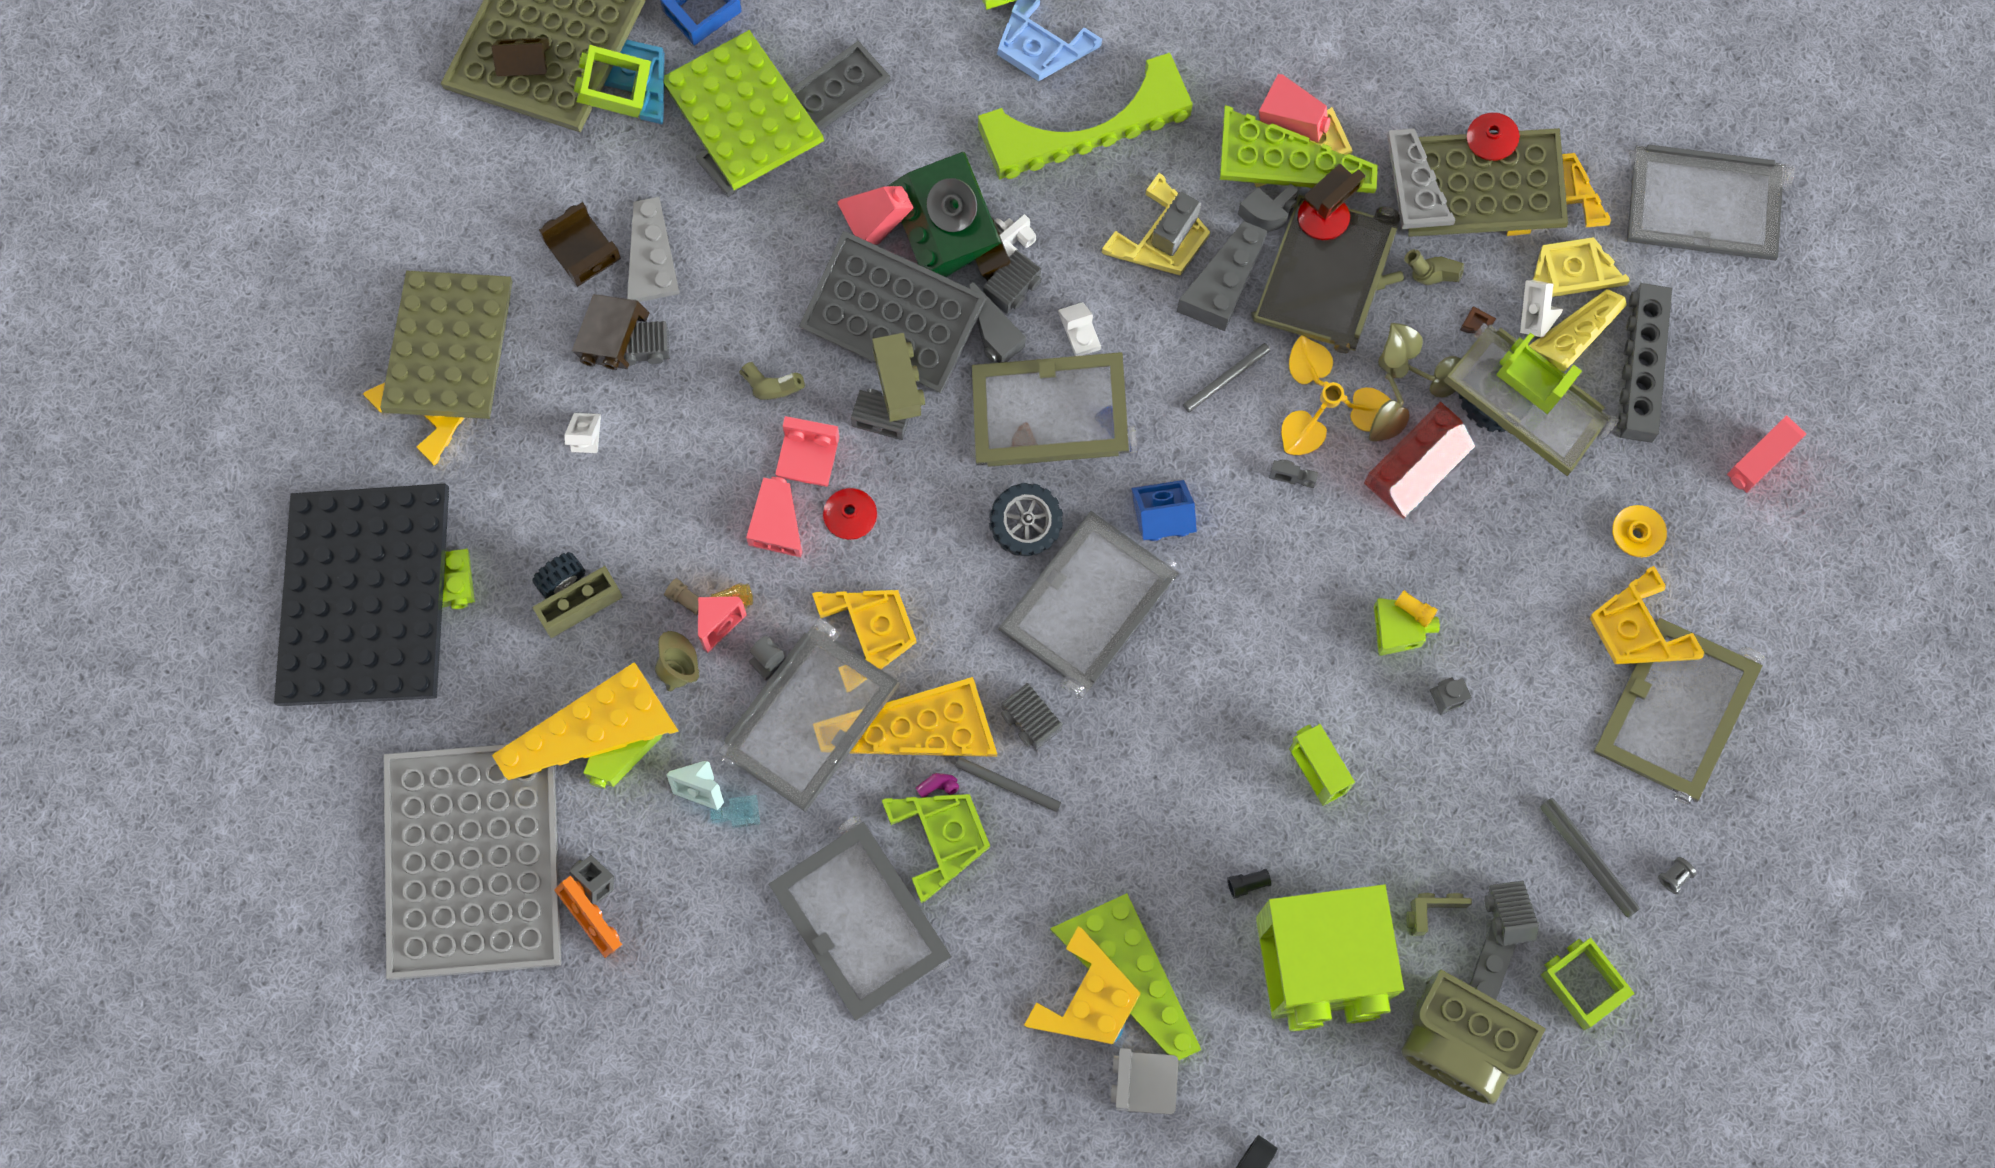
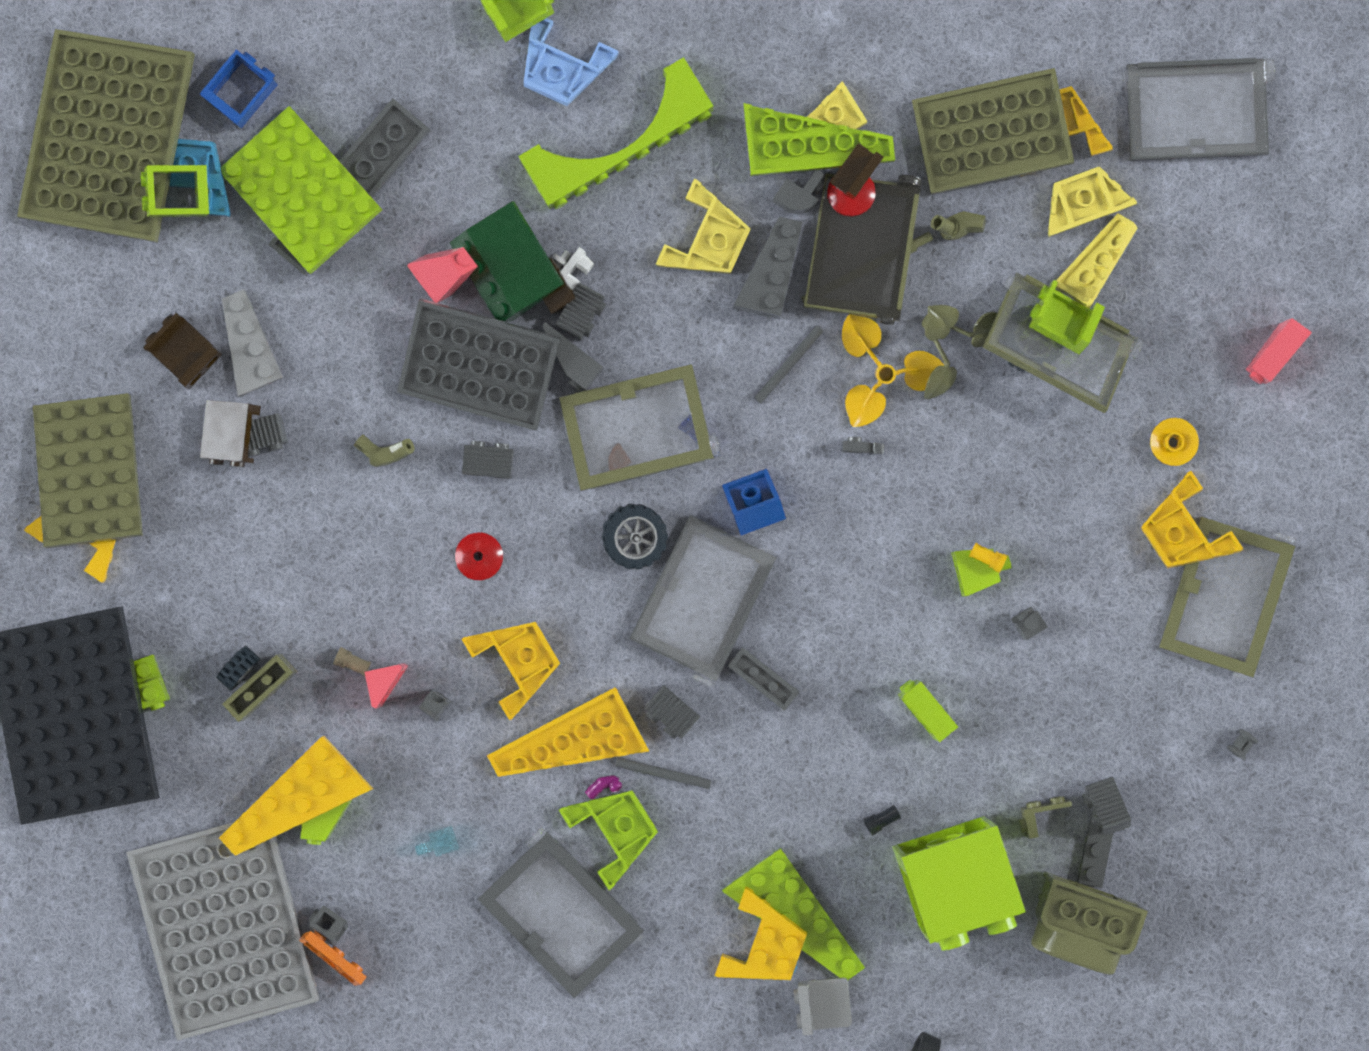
camera: 10 degrees left, 15 degrees up
(520, 56) = (84, 179): dark brown panel -> none
(583, 432) = (228, 528): white slope -> none
(676, 661) = (357, 721): olive piece -> none
(696, 784) = (397, 827): light aqua slope -> none
(739, 590) = (394, 654): clear yellow cone -> none
(774, 519) = (414, 576): coral slope -> none
(807, 451) = (430, 511): coral bracket -> none
(808, 716) = (481, 750): clear door -> none
(898, 376) = (496, 430): olive brick -> none
(941, 207) = (508, 267): dark grey dish -> none
(1079, 329) = (649, 343): white slope -> none
(1140, 700) = (763, 678): none -> dark grey plate
(1176, 223) = (718, 231): dark grey brick -> none
(1294, 109) = (807, 94): coral slope -> none
(1415, 183) = (933, 155): light grey wing -> none
(1420, 460) = (973, 412): clear red slope -> none
(1475, 320) = (1004, 266): reddish brown tile -> none
(1491, 146) = (994, 98): red dish -> none
(1537, 310) = (1058, 248): white slope -> none
(1589, 857) = (1166, 741): dark grey axle -> none
(1607, 970) = (1195, 868): lime window -> none
(1658, 302) = (1166, 219): dark grey brick -> none

